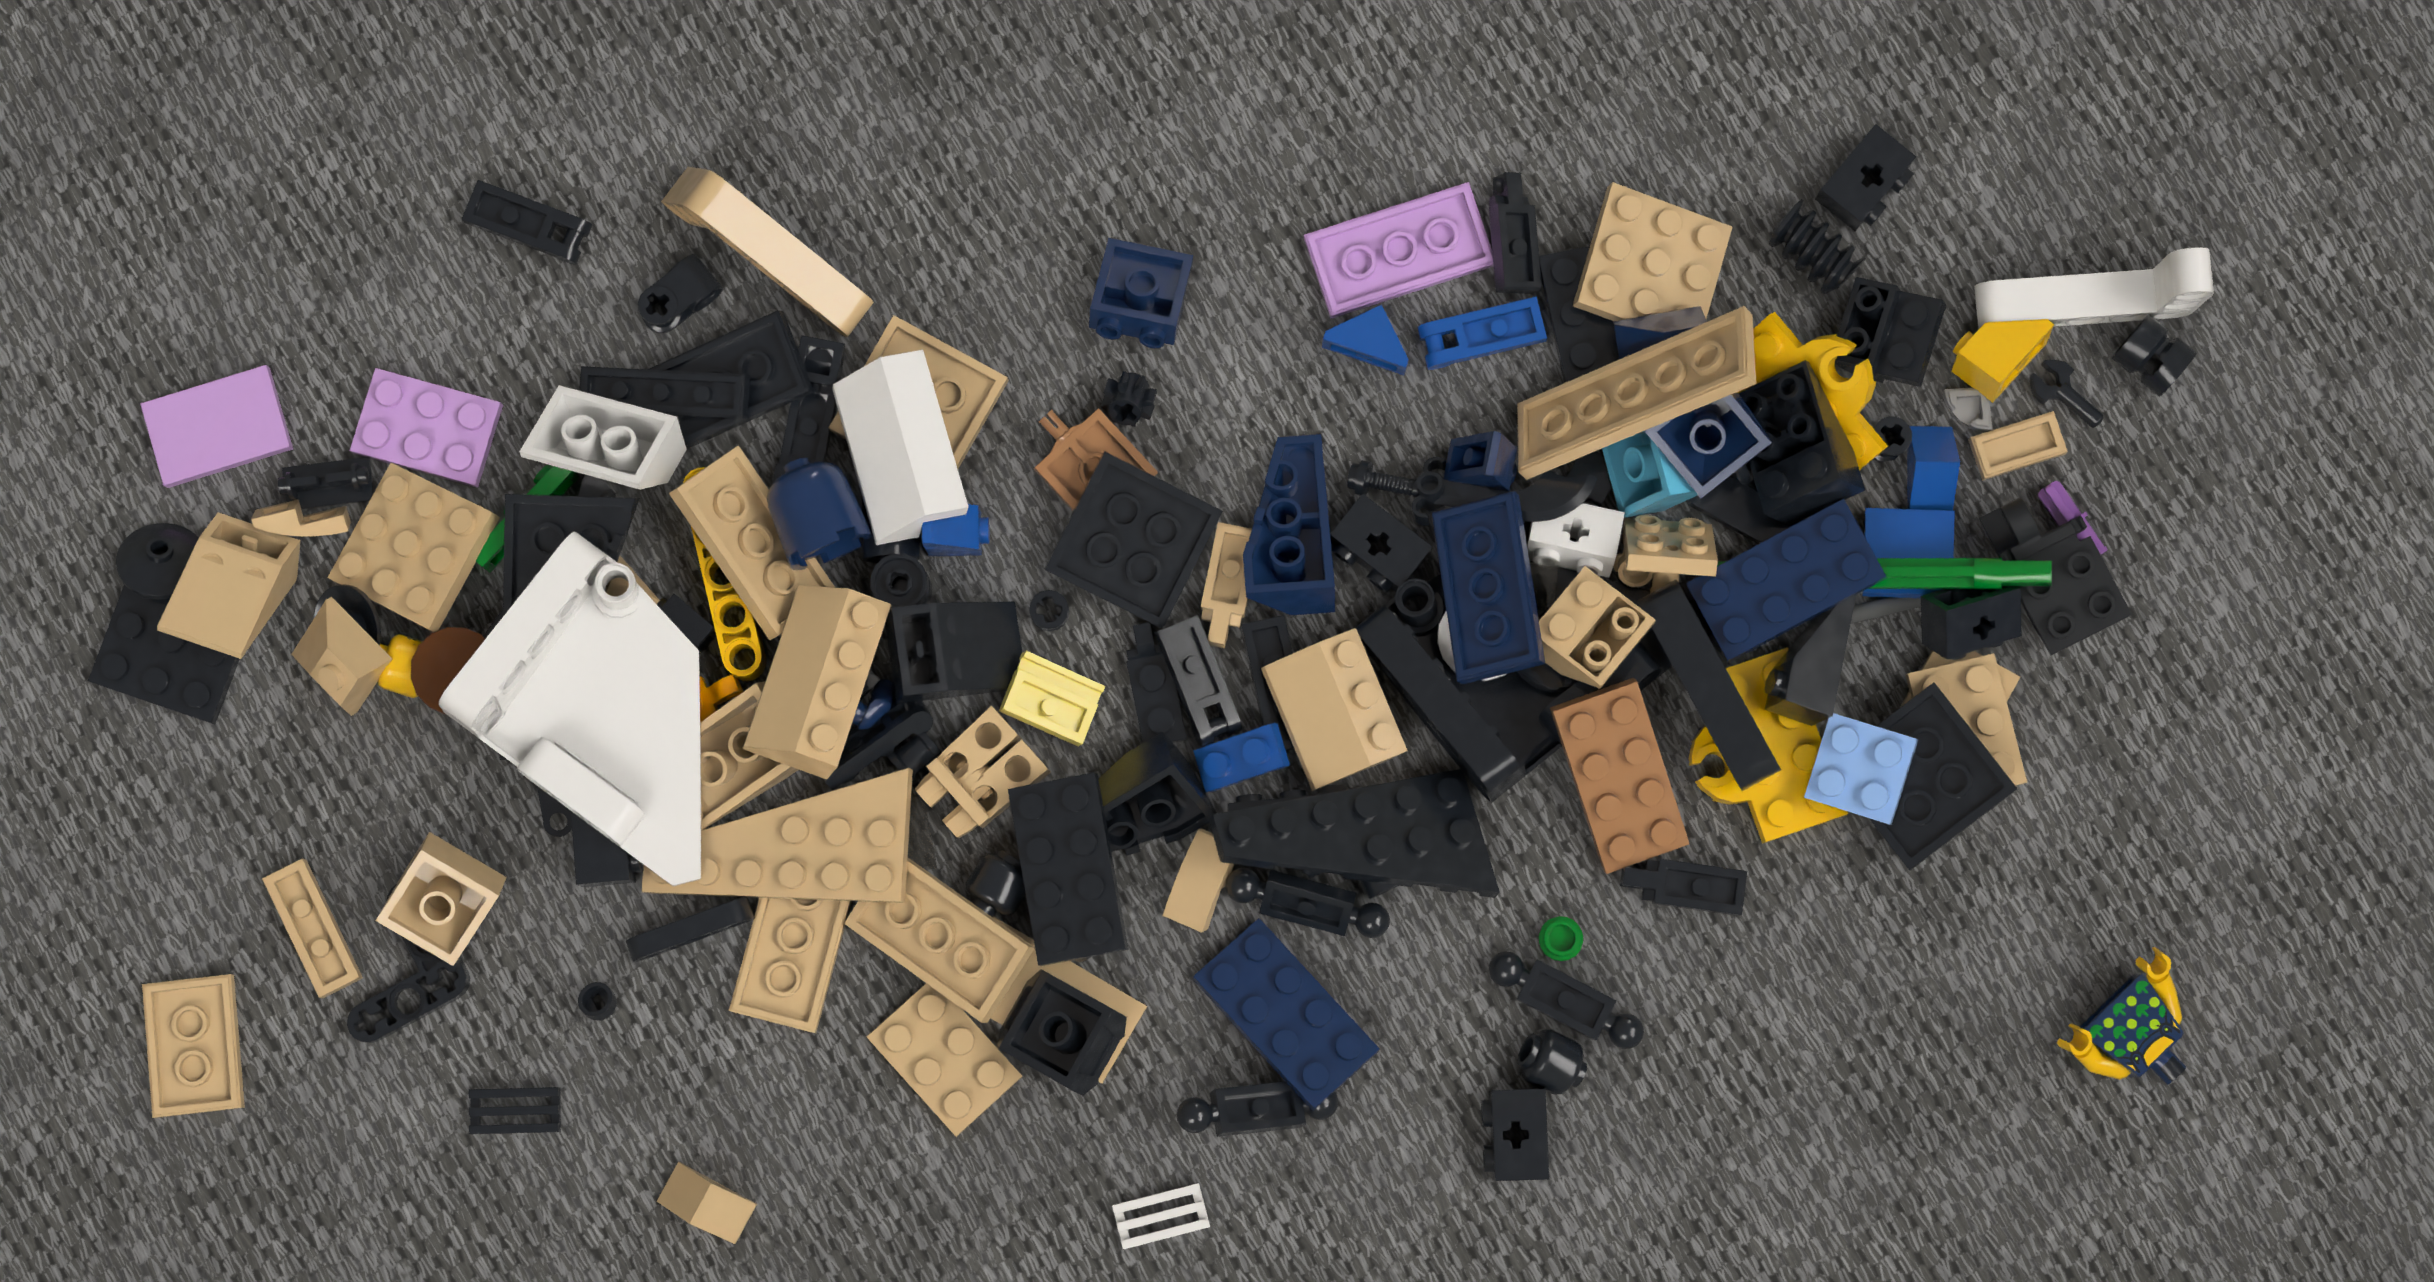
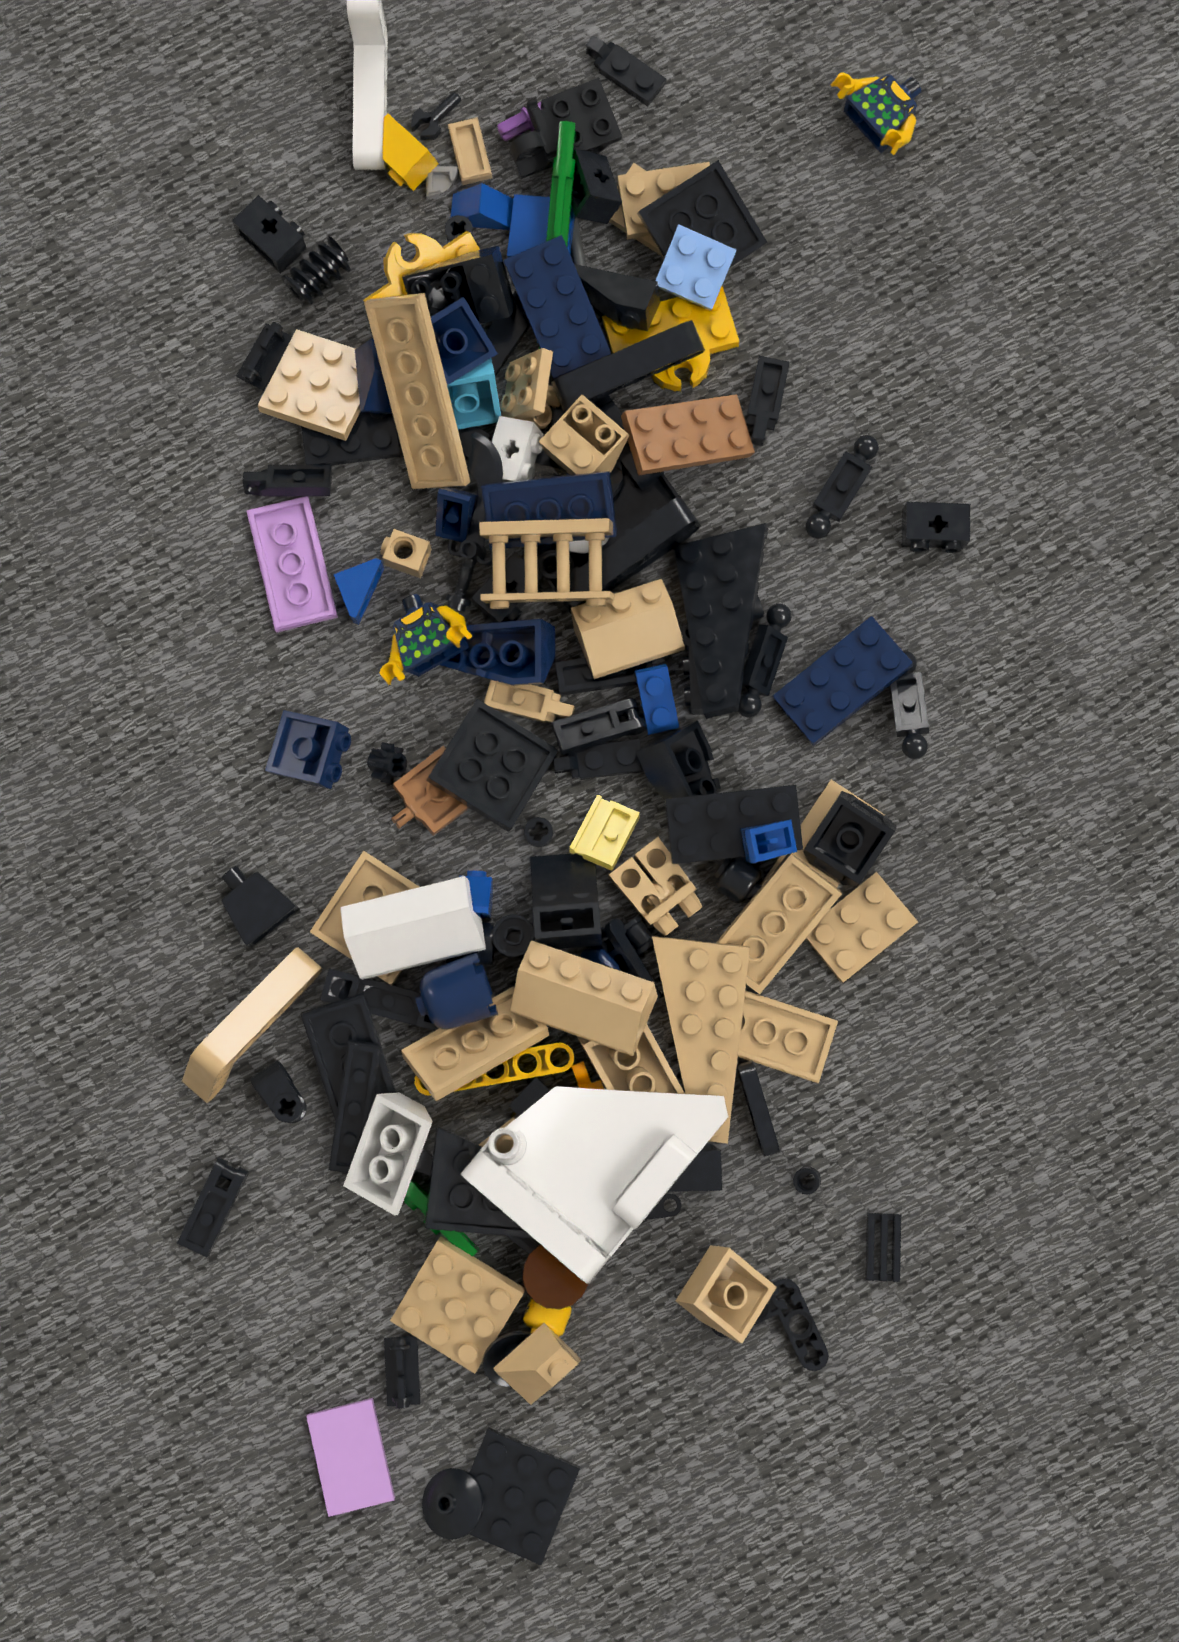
camera: 90 degrees left, 0 degrees up
(193, 1046) = (823, 1491): tan tile -> none
(231, 585) = (479, 1447): tan slope -> none
(289, 520) = (429, 1403): tan slope -> none
(312, 928) = (740, 1395): tan plate -> none
(426, 427) = (364, 1292): lavender plate -> none
(706, 1203) = (957, 1108): tan slope -> none
(925, 241) = (255, 905): none -> black torso
(1041, 912) = (768, 841): none -> blue slope
(1198, 884) = (744, 735): tan slope -> none
(1198, 1207) = (992, 776): white tile -> none
(1301, 432) = (424, 638): none -> torso
(1418, 419) = (412, 565): none -> tan brick
(1450, 605) = (530, 534): none -> tan fence
(1483, 332) = (358, 507): blue plate -> none
(1552, 1061) = (885, 498): black head -> none
(1560, 938) = (798, 487): green plate -> none
(1690, 187) = (264, 356): none -> black hinge
(1890, 330) = (380, 222): black brick -> none
(2137, 354) = (416, 50): black wheel -> none
(2160, 658) = (625, 70): none -> black hinge

